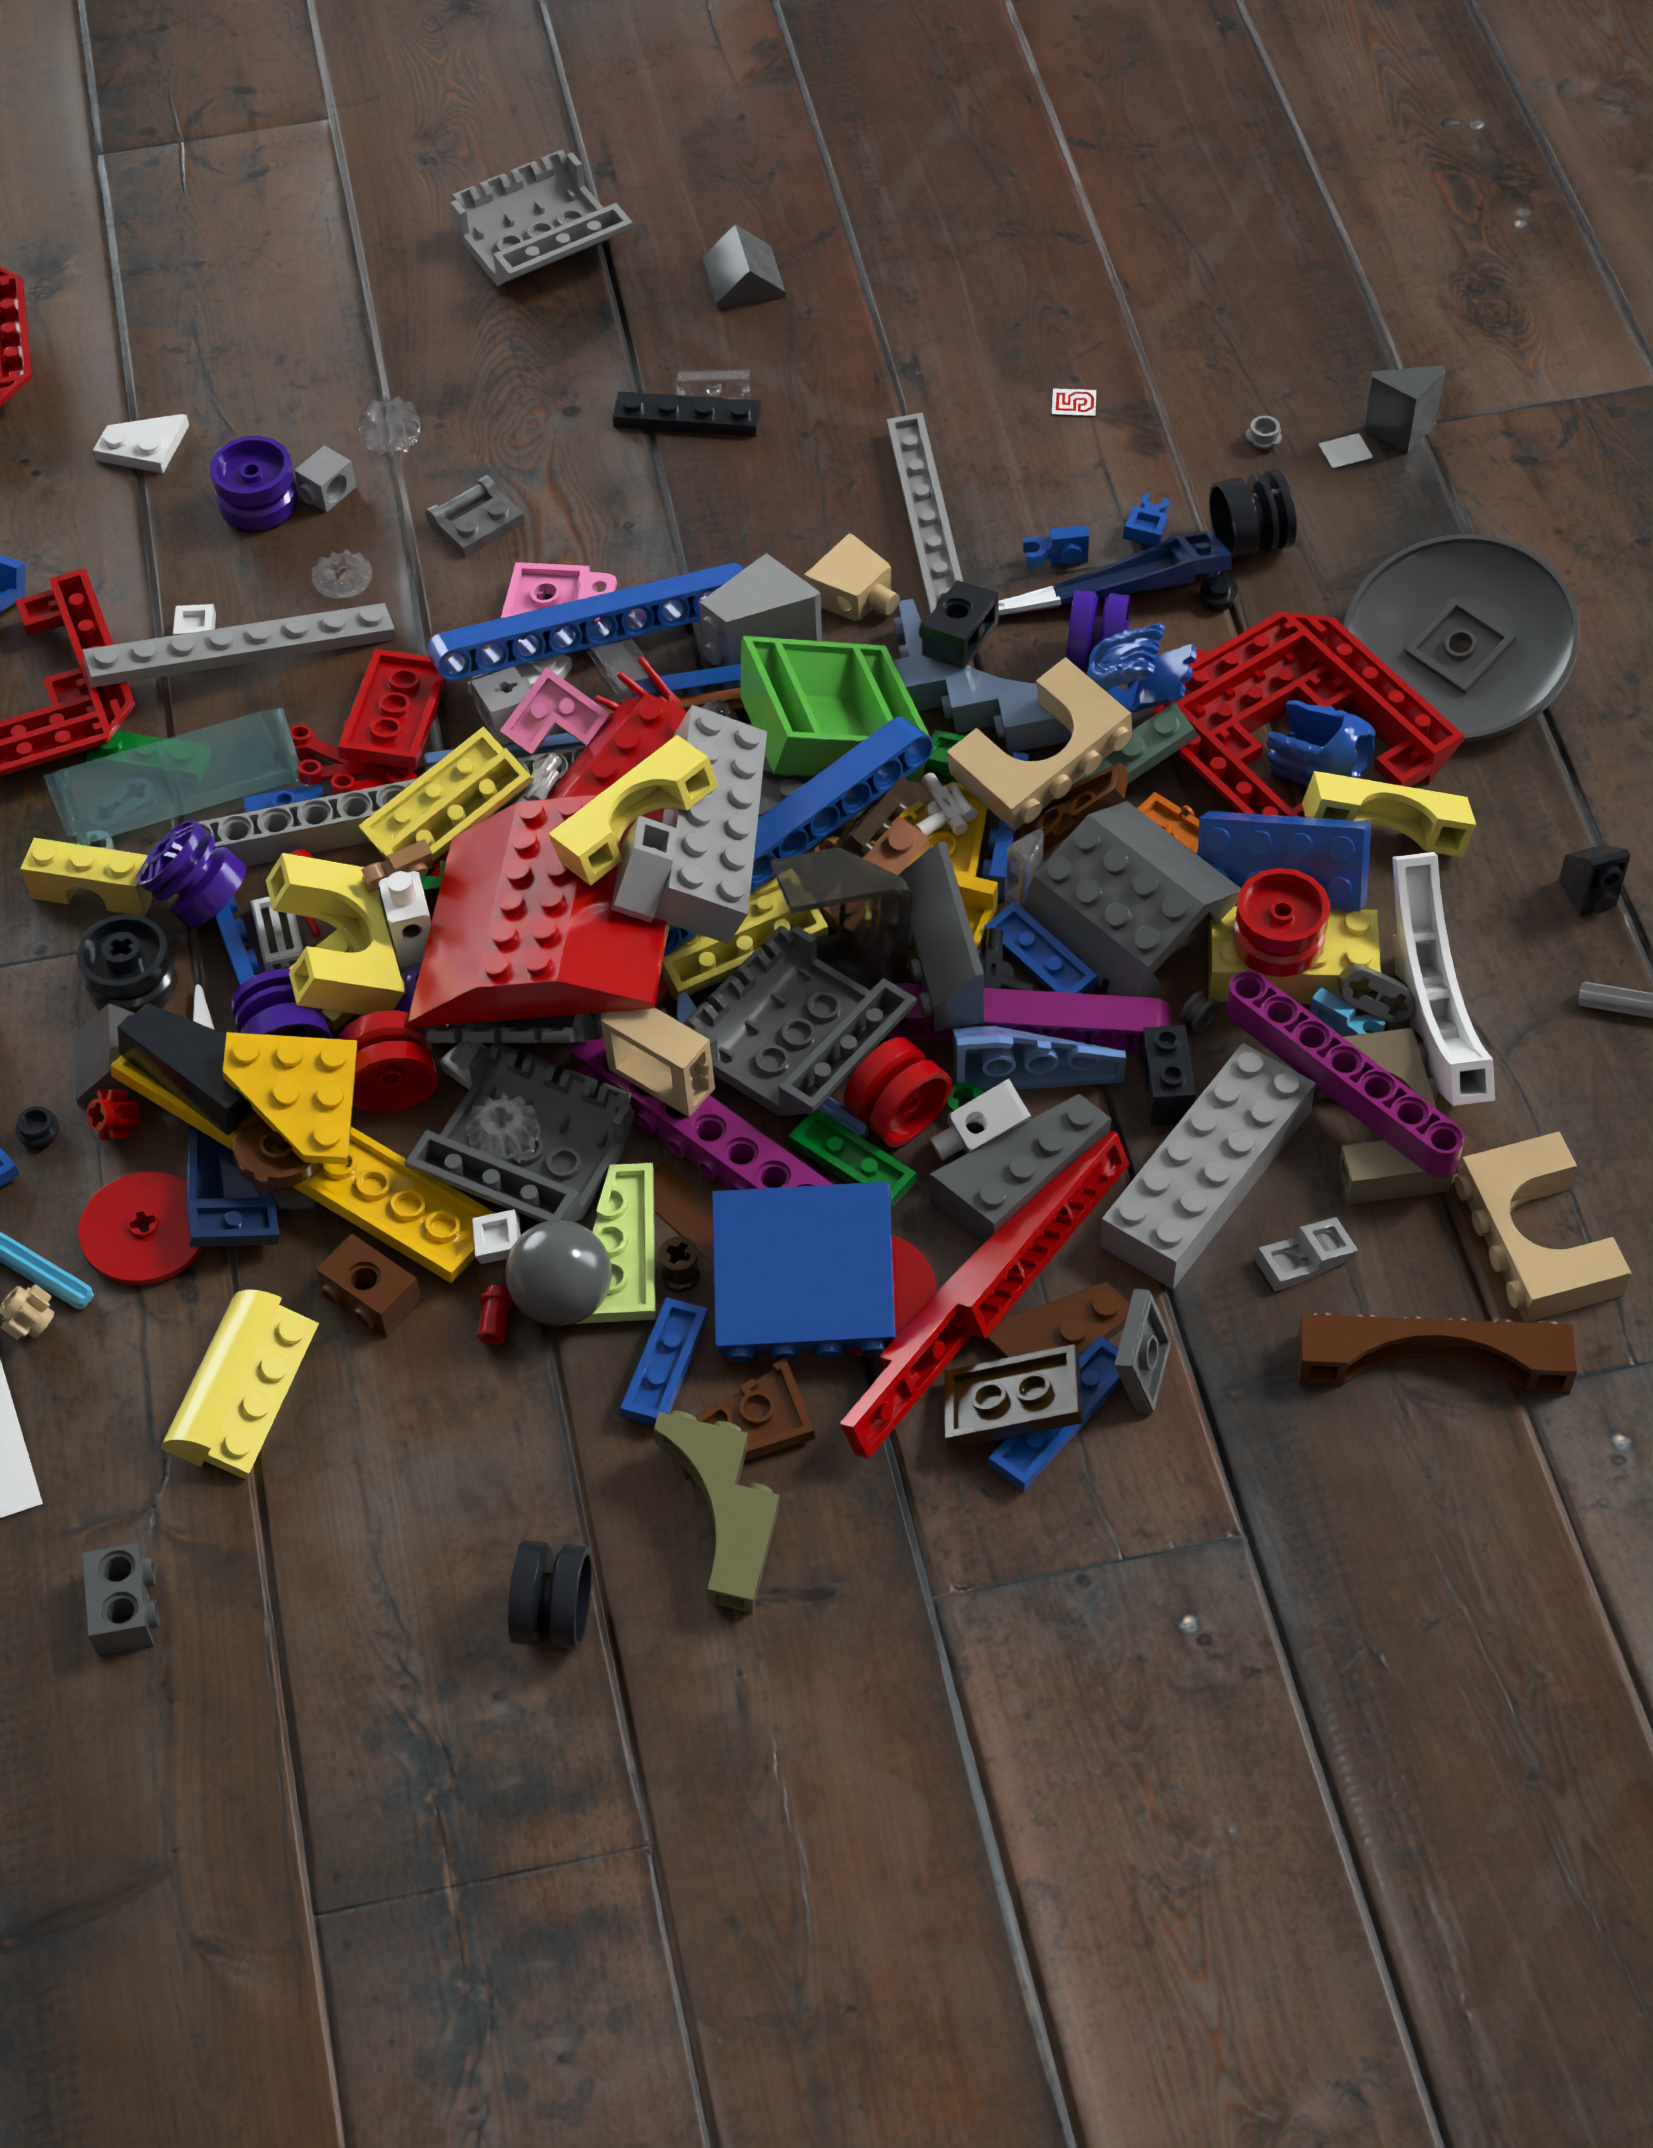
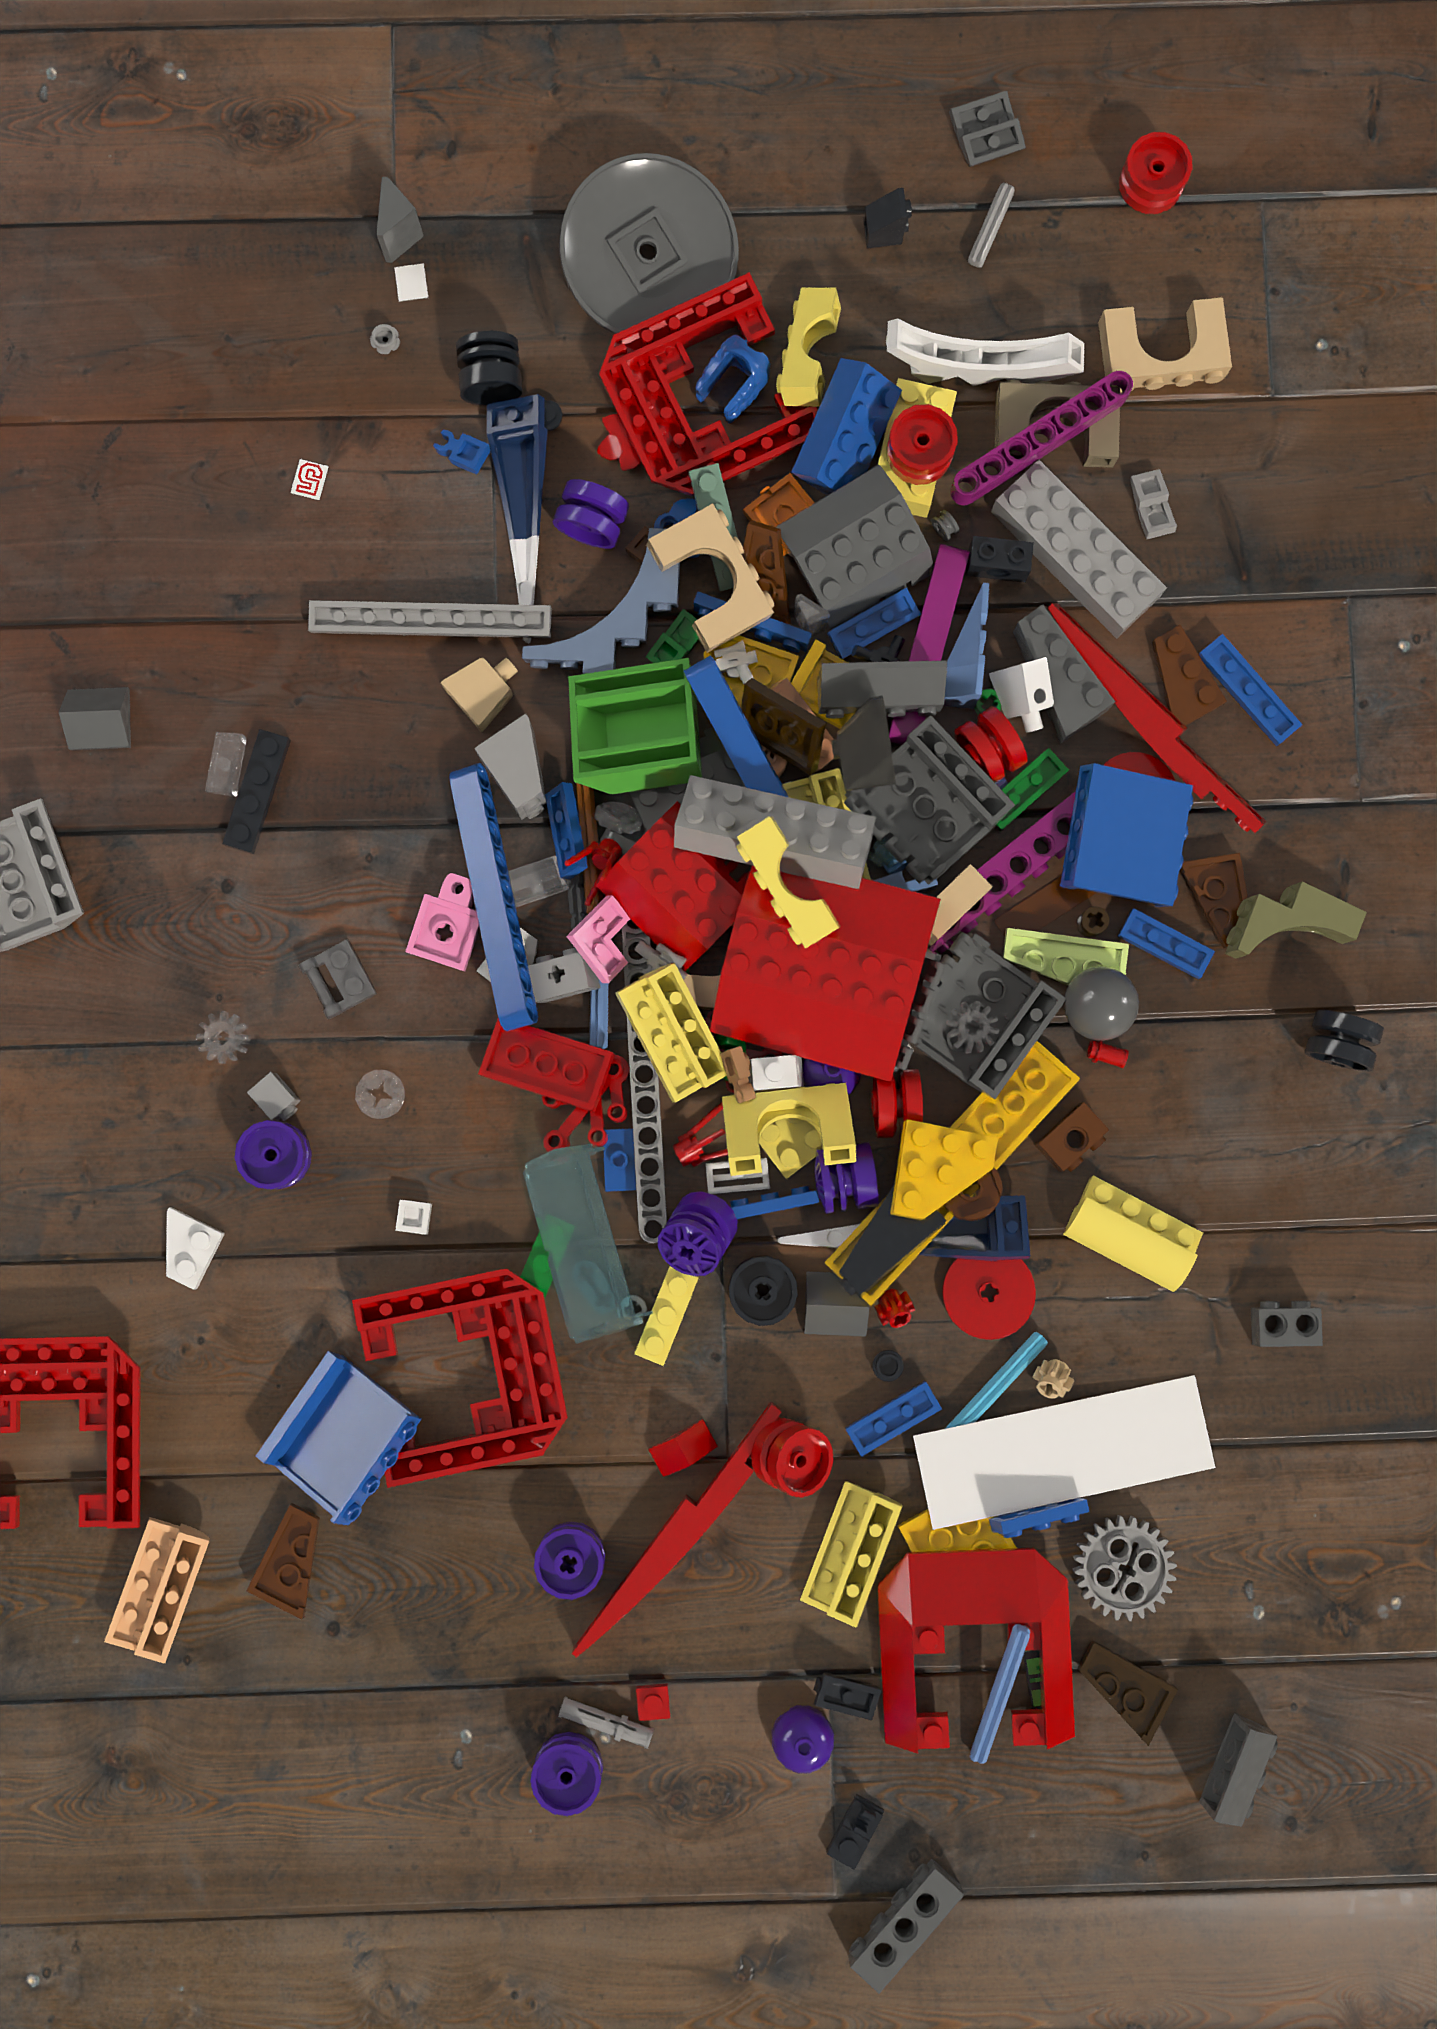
camera: 85 degrees left, 30 degrees up
(237, 645) = (456, 1182): light grey plate -> none
(495, 1235) = (1060, 1042): white plate -> none
(645, 868) = (833, 882): light grey slope -> none
(959, 624) = (562, 599): black brick -> none
(1012, 1396) = (1243, 718): dark brown plate -> none
(1062, 547) = (480, 519): blue plate -> none
(1133, 661) = (655, 493): blue piece -> none
(1143, 1352) = (1228, 627): dark grey plate -> none
(1342, 1016) = (971, 430): medium azure plate -> none
(1372, 1001) = (968, 398): dark grey beam -> none
(1529, 1355) = (1236, 496): reddish brown arch -> none

